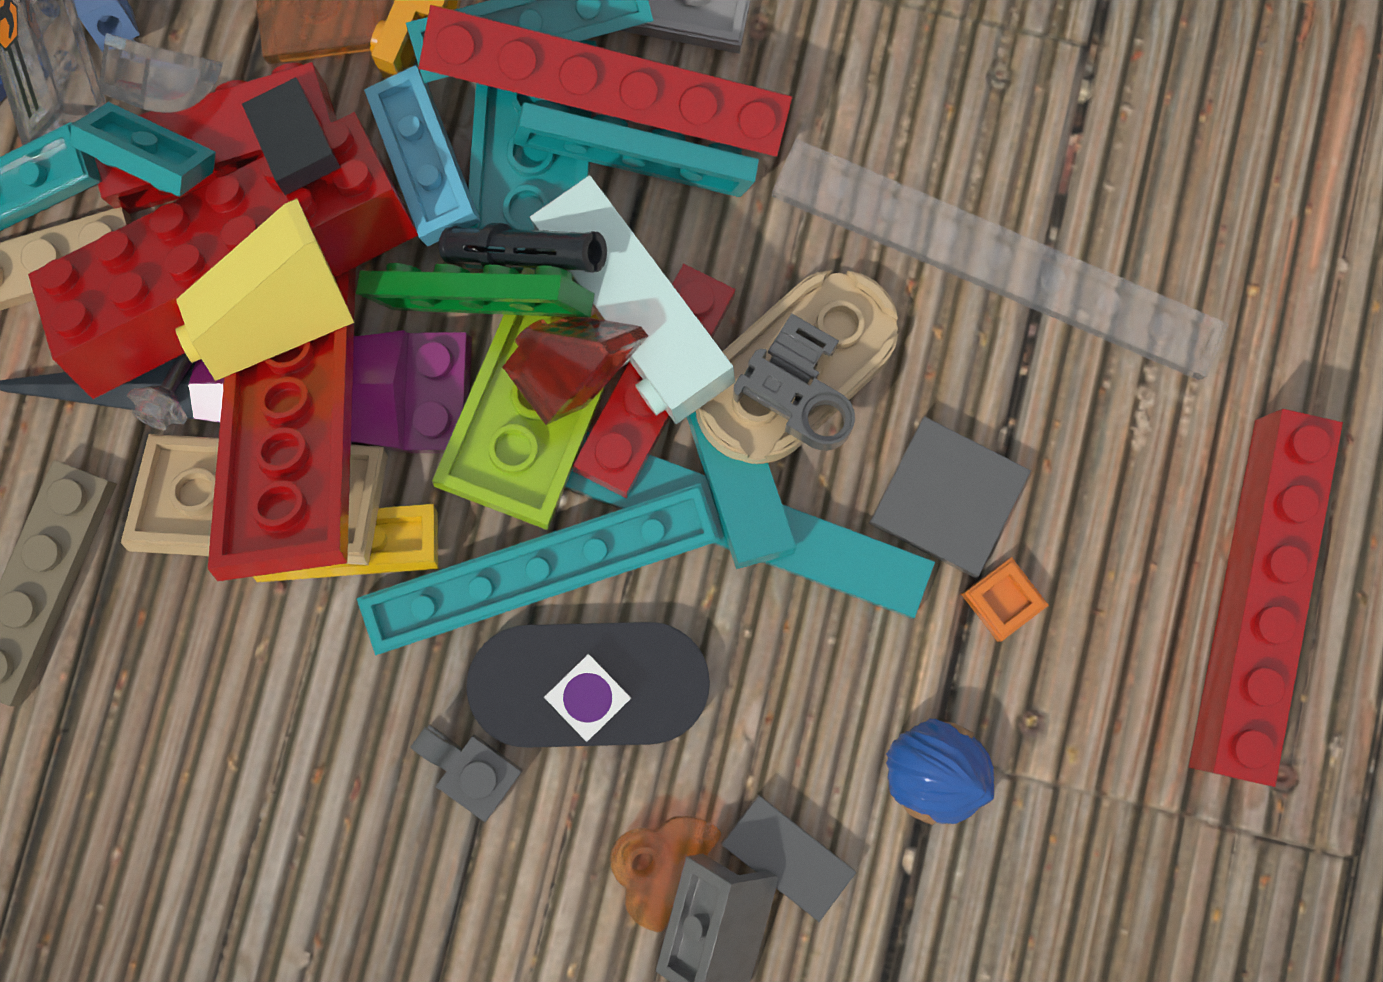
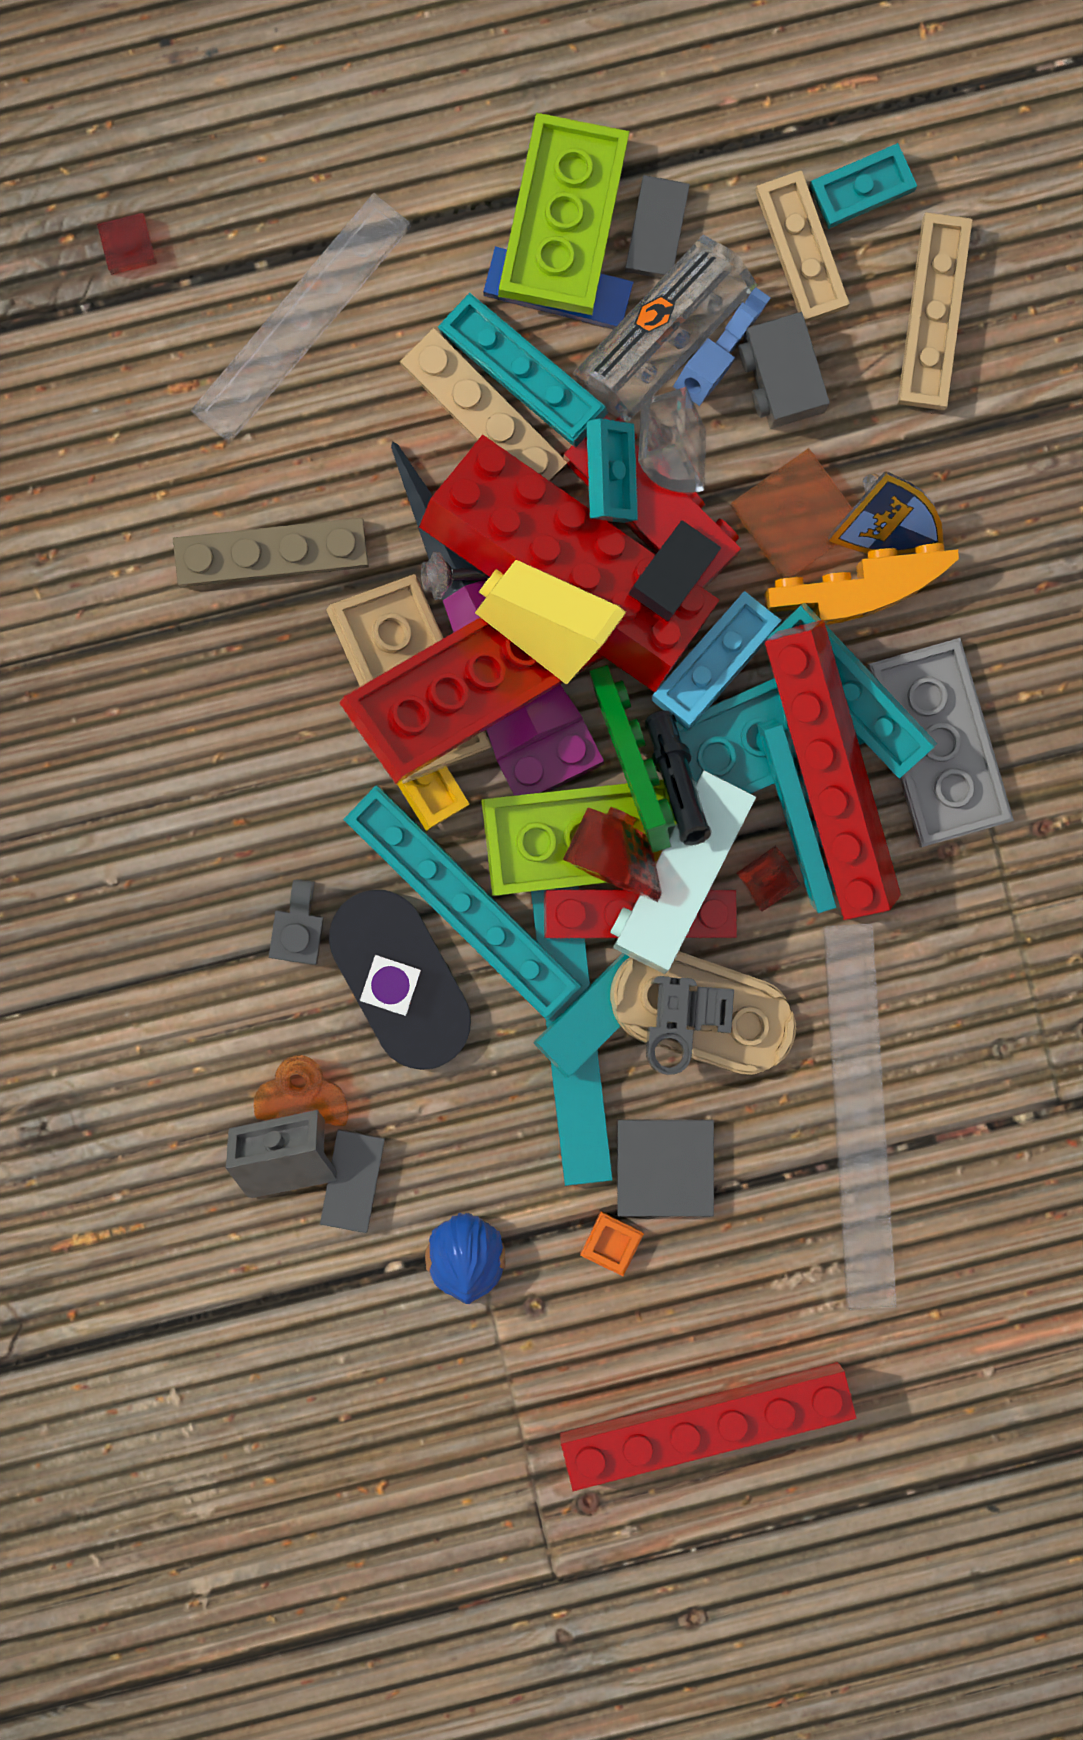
camera: 60 degrees right, 5 degrees up
(689, 221) = (768, 878): none -> clear red plate

